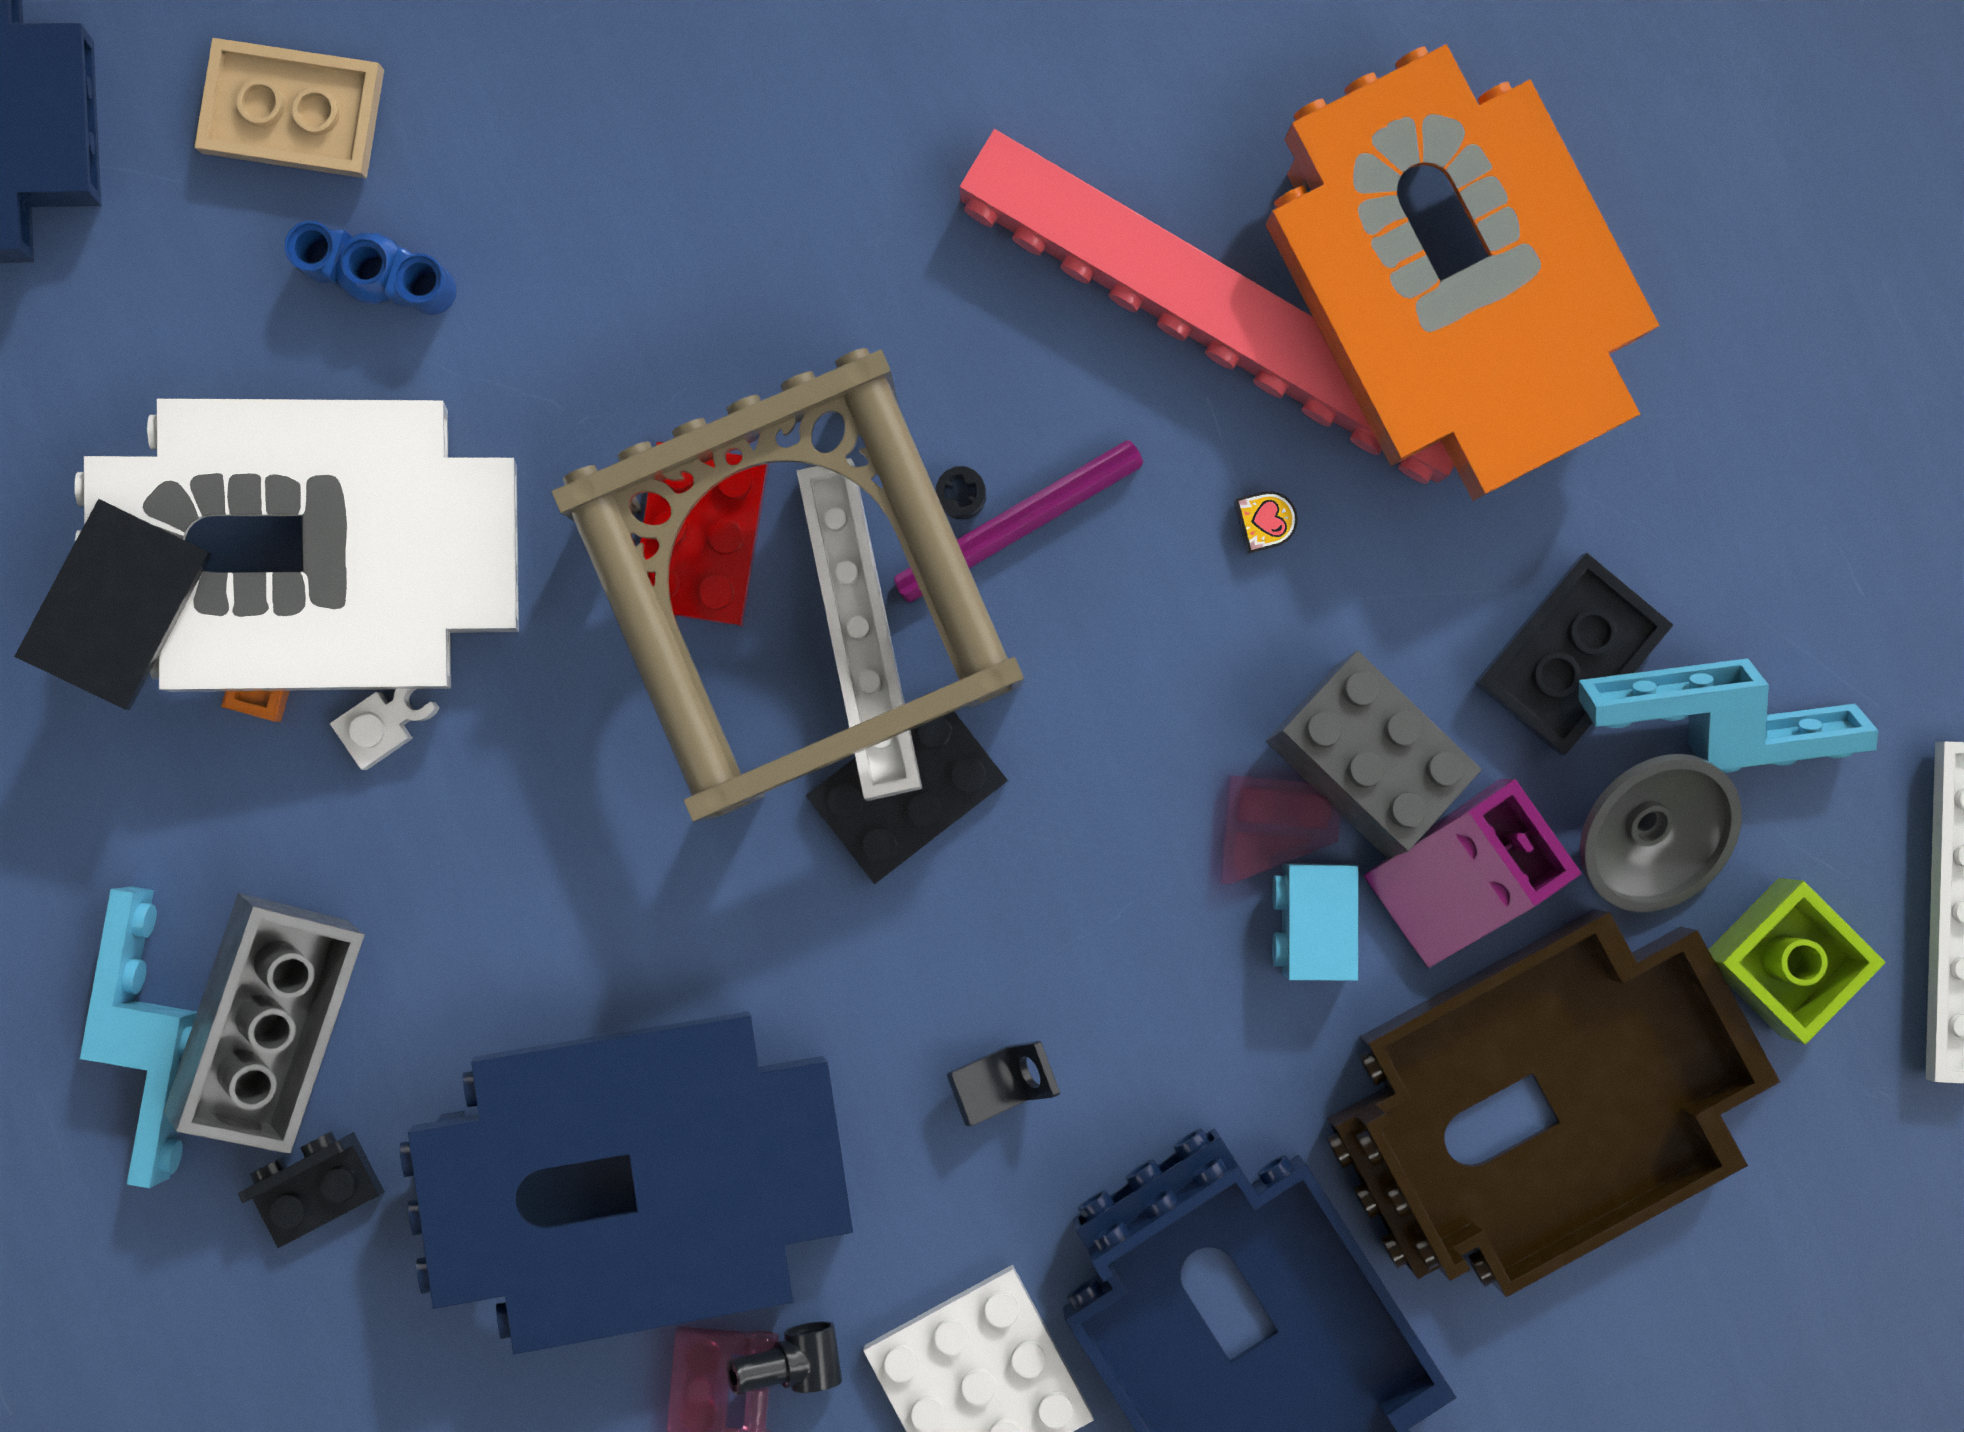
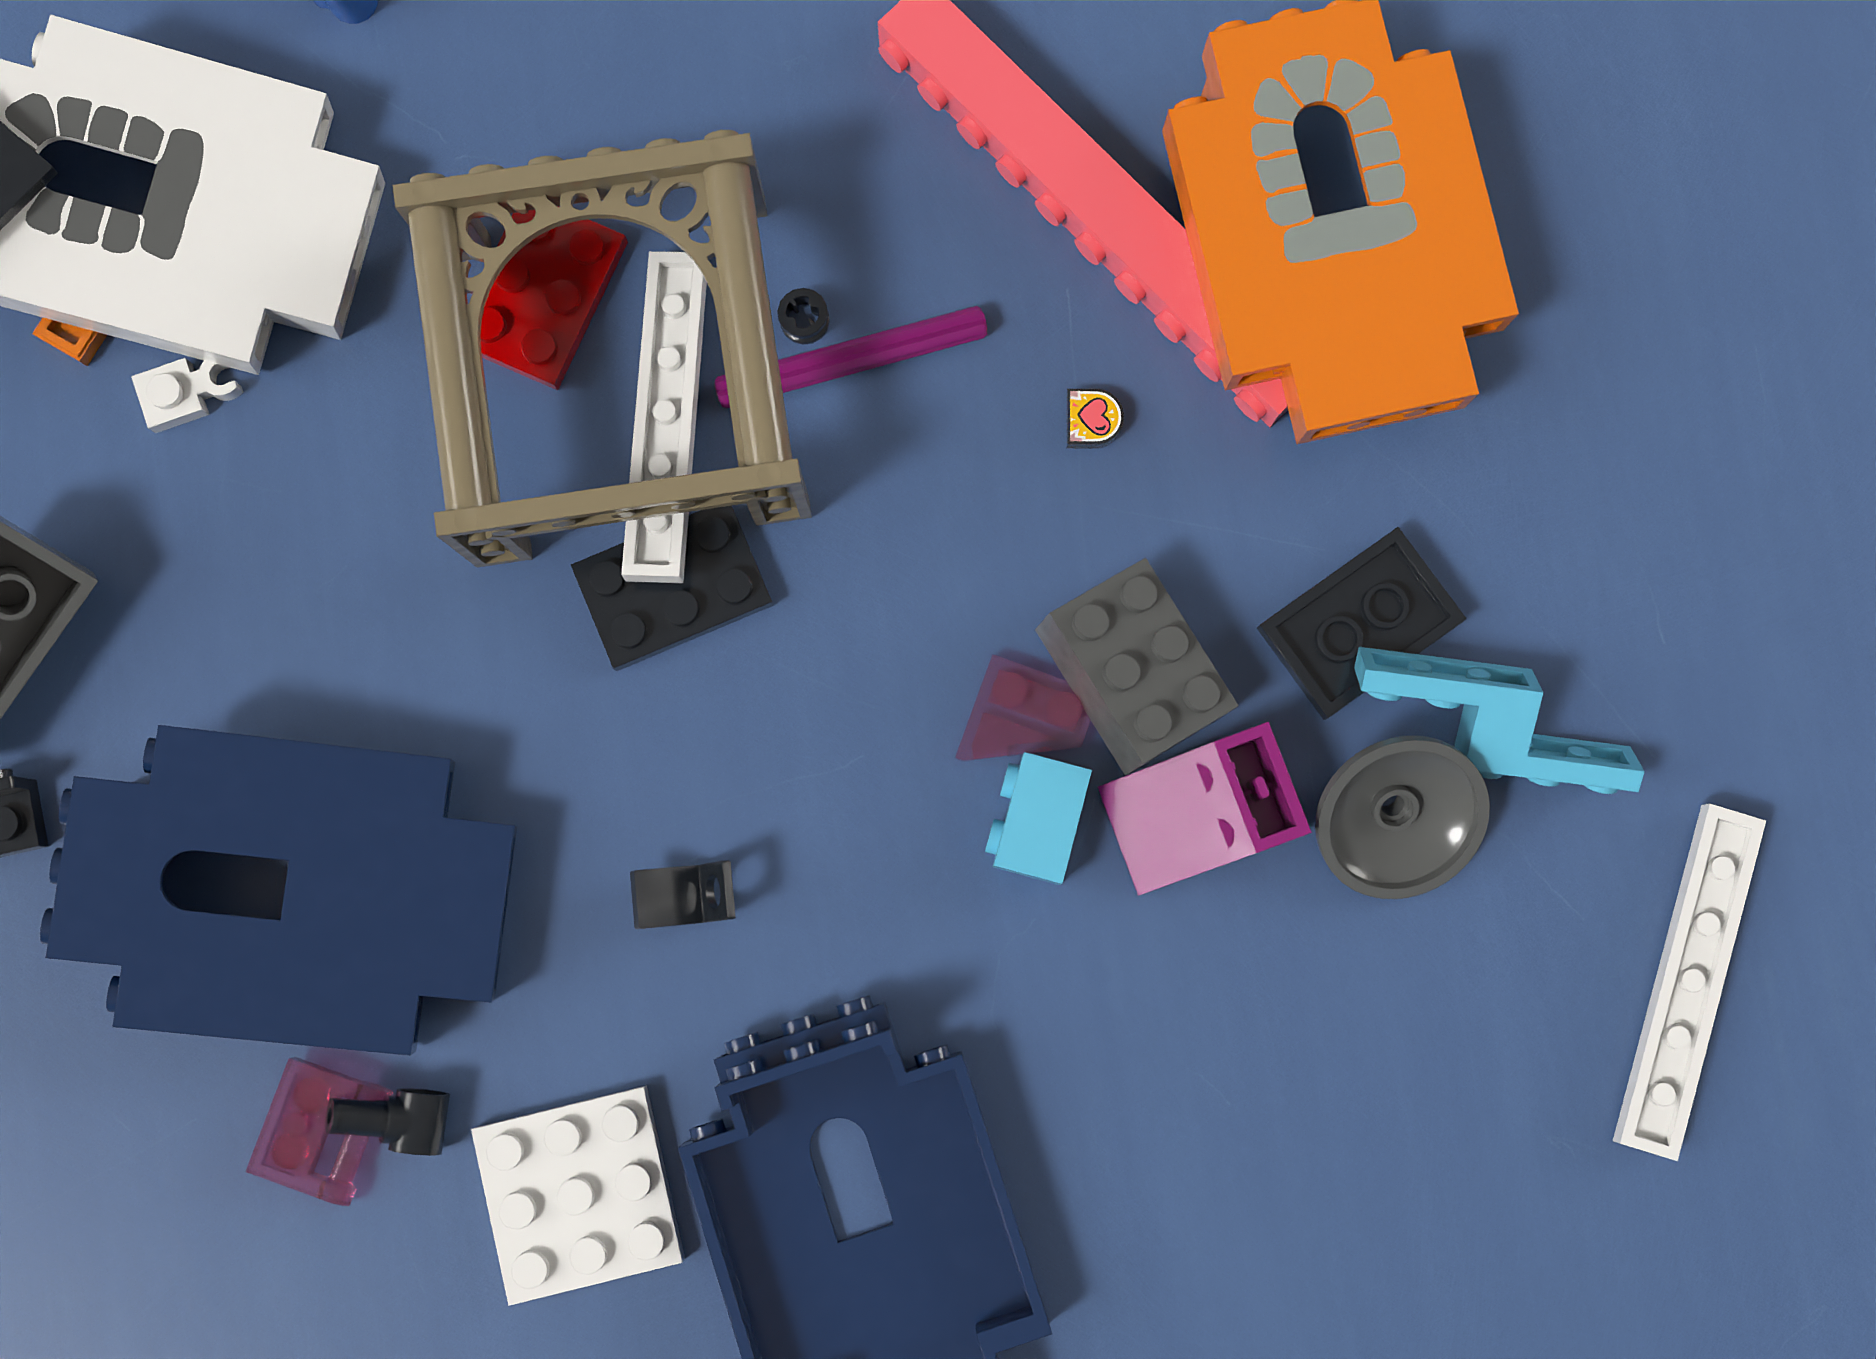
camera: 15 degrees right, 5 degrees down
(1631, 1062) = (1316, 1047): dark brown panel -> none
(1794, 959) = (1505, 980): lime brick -> none

